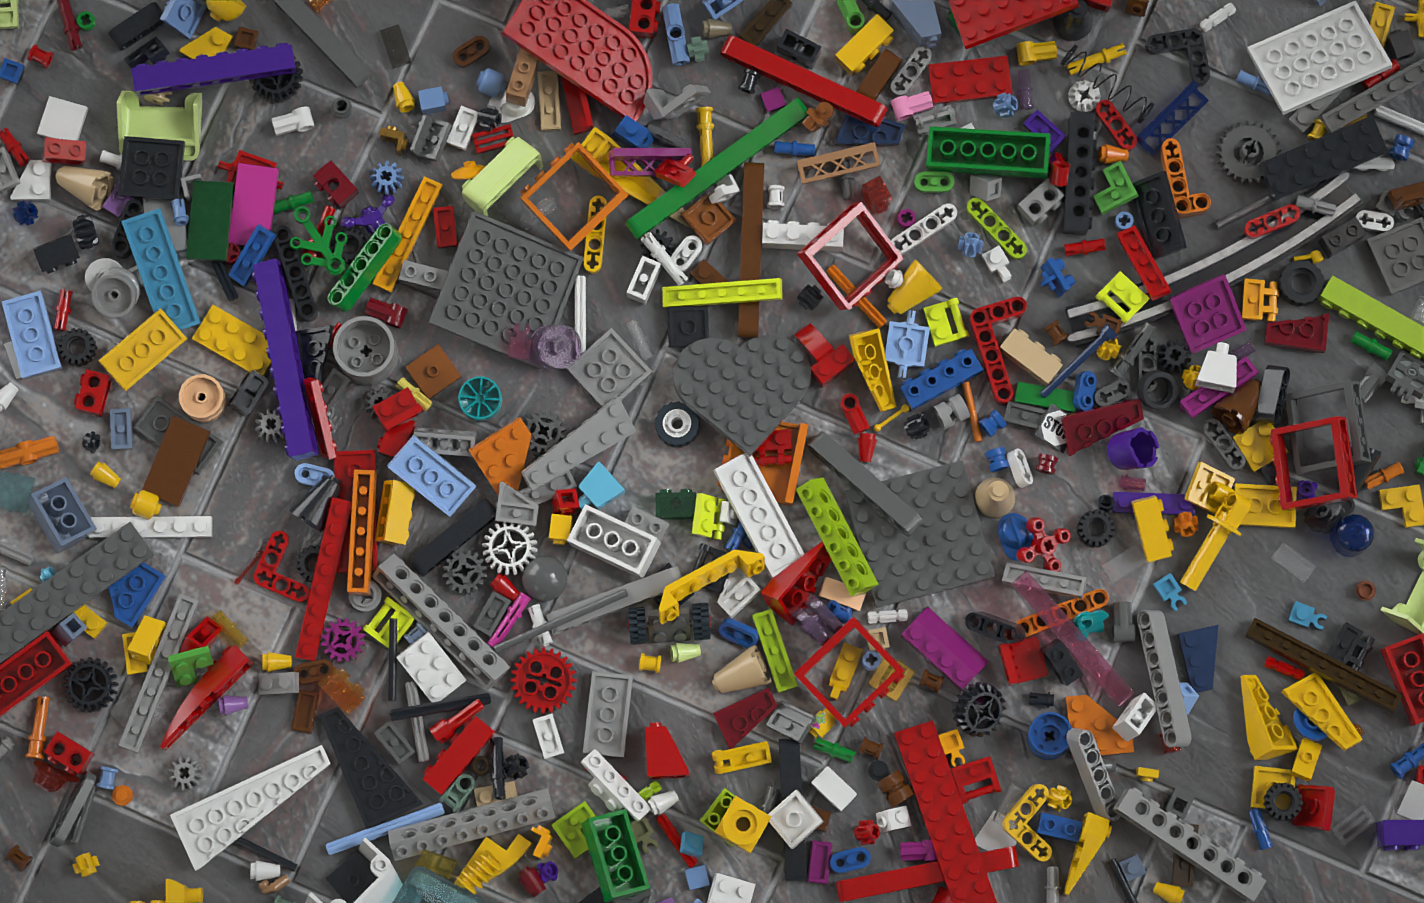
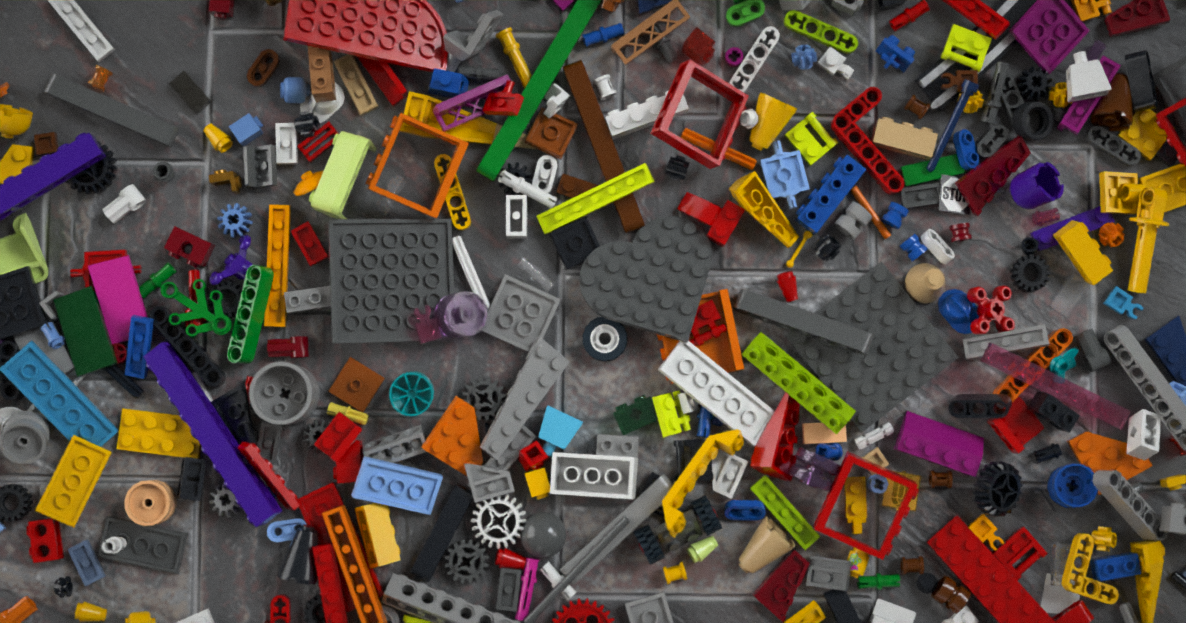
camera: 25 degrees left, 5 degrees up
(155, 421) = (114, 544): none -> white pin
(176, 460) = (151, 571): reddish brown tile -> none
(854, 415) = (765, 262): red piece -> none

